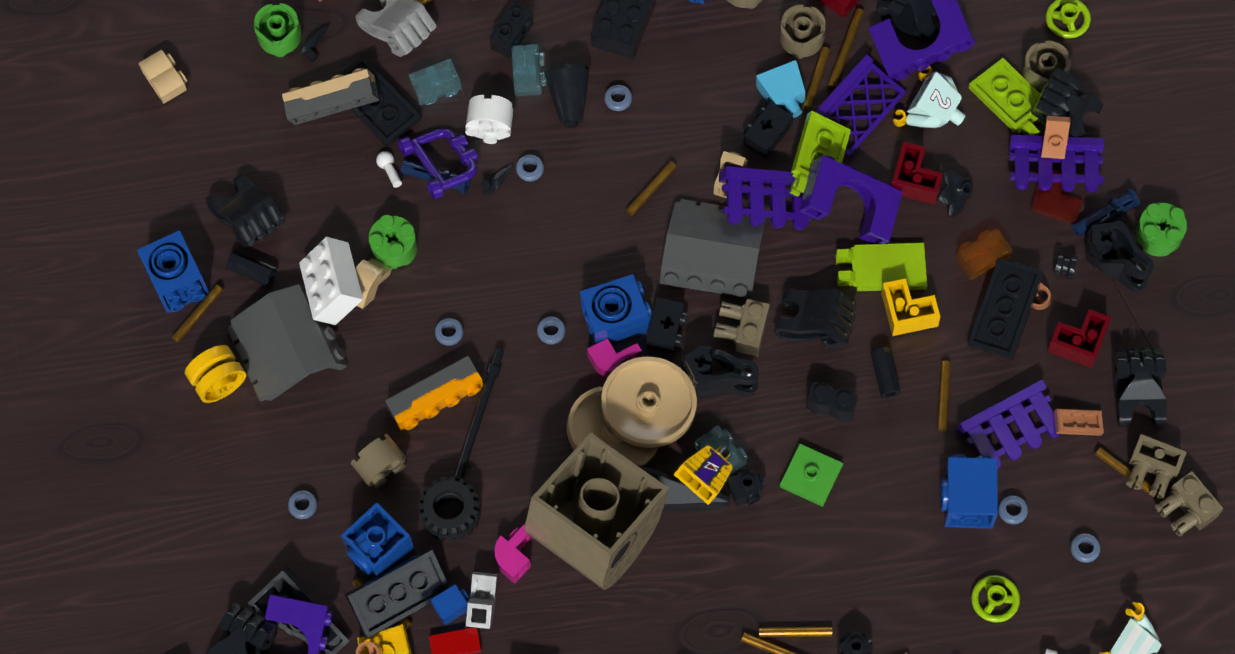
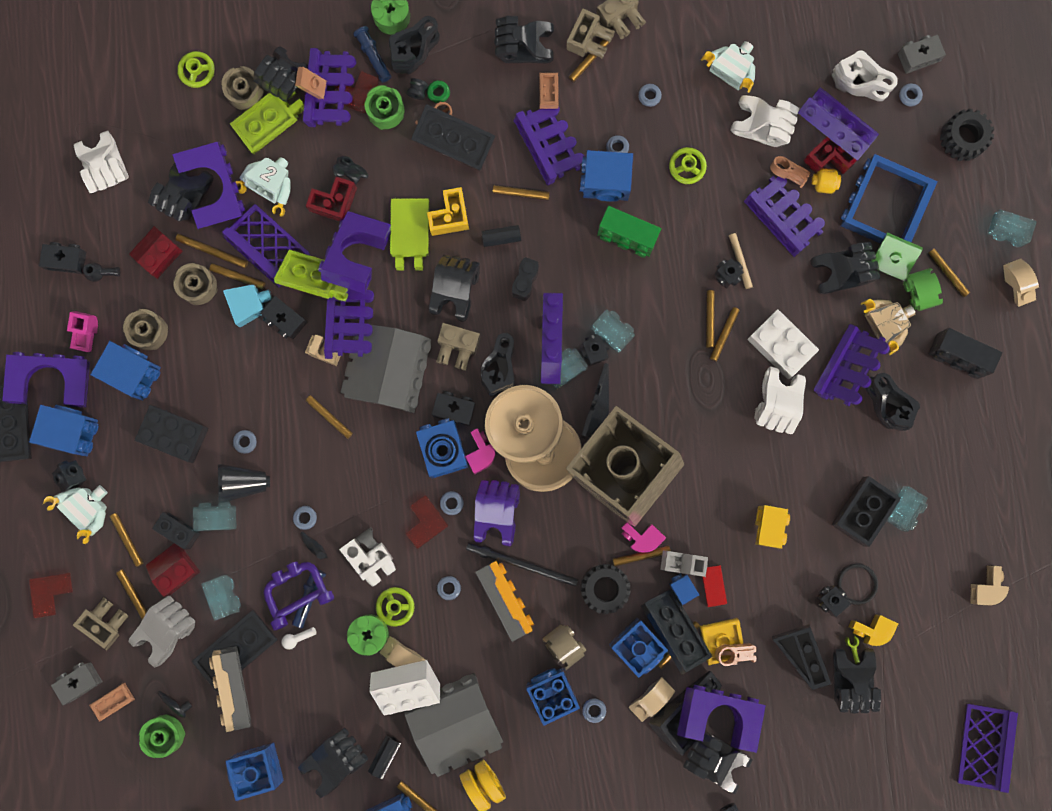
camera: 90 degrees left, 15 degrees up
(237, 124) = (254, 771): none -> blue brick
(316, 570) = (652, 700): none -> tan brick
(321, 447) = (552, 695): none -> blue brick
(426, 264) = (388, 594): none -> lime piece
(464, 29) = (171, 570): none -> dark red slope
(477, 239) = (368, 563): none -> white hips
(489, 118) = (260, 550): white brick -> none
(490, 553) = (640, 556): none -> pearl gold piece
(527, 308) = (430, 525): none -> clear red plate
(544, 375) = (496, 509): none -> dark purple piece
(706, 472) = (589, 378): yellow torso -> none
(772, 510) = (613, 330): none -> clear light blue brick
(783, 426) = (552, 338): none -> dark purple arch
(811, 475) = (584, 299): bright green plate -> none
(898, 520) = (628, 232): none -> green piece
(983, 253) = (403, 151): clear orange brick -> none
(1037, 227) = (388, 97): none -> bright green brick
(1067, 283) = (438, 84): none -> green piece
(1083, 344) = (484, 77): dark red brick -> none

